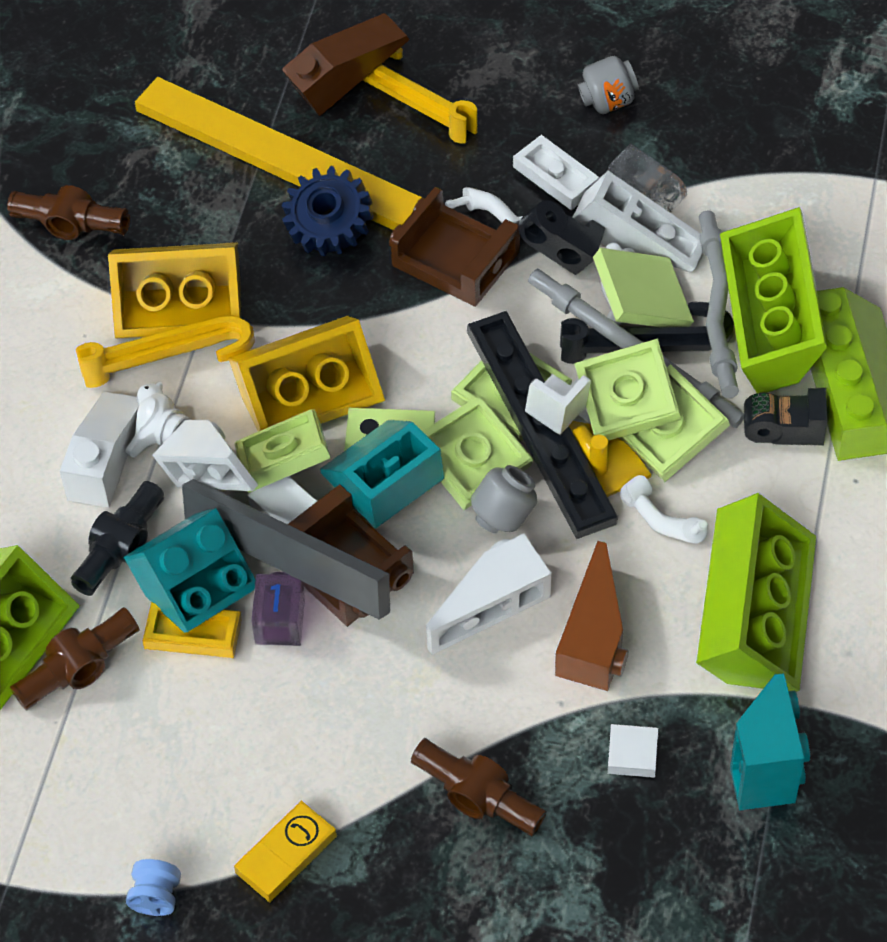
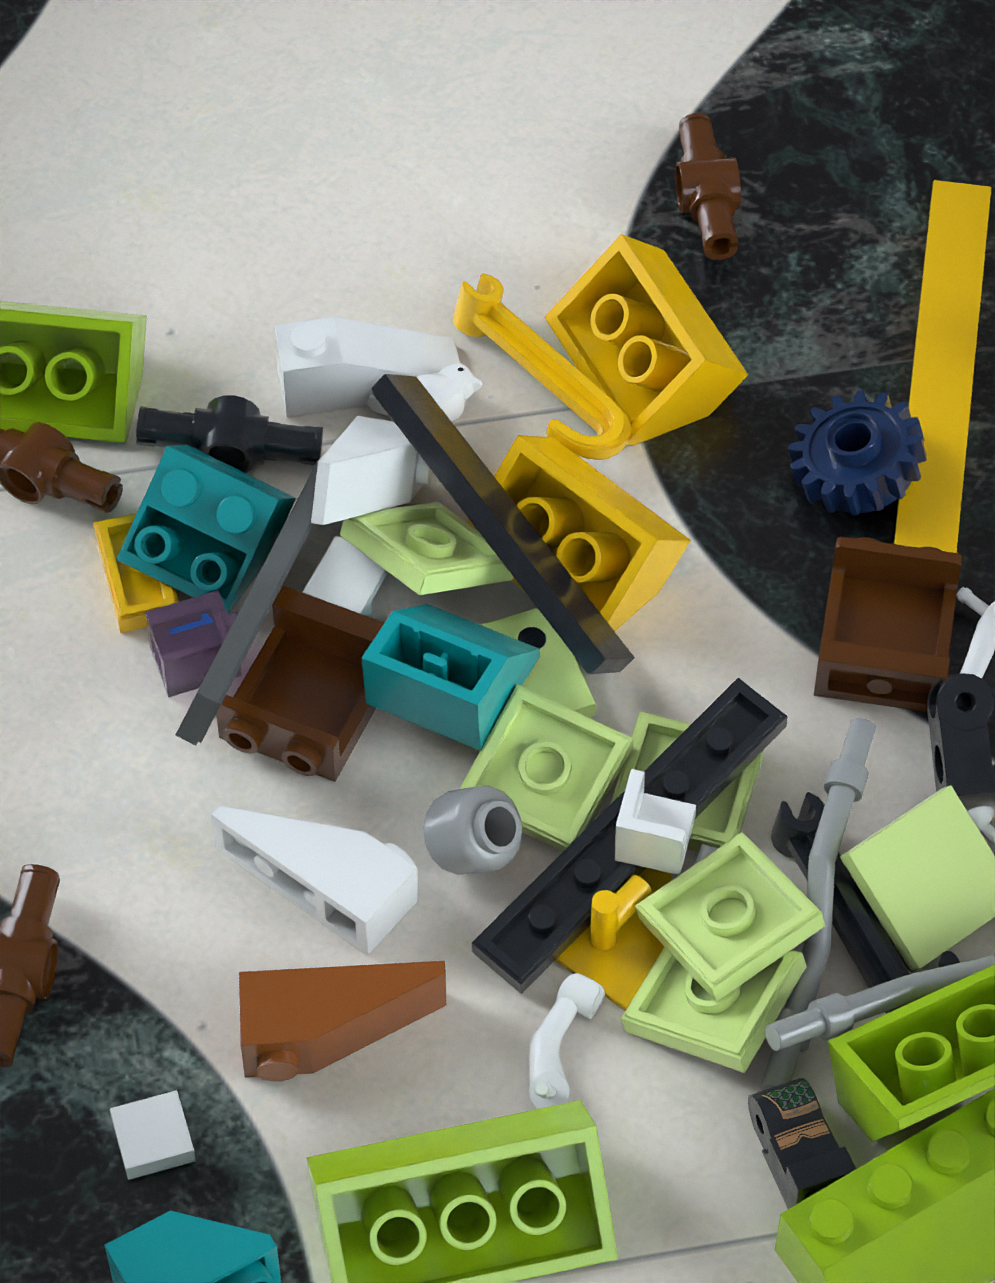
camera: 65 degrees right, 0 degrees up
(288, 402) = (502, 524): none -> black tile

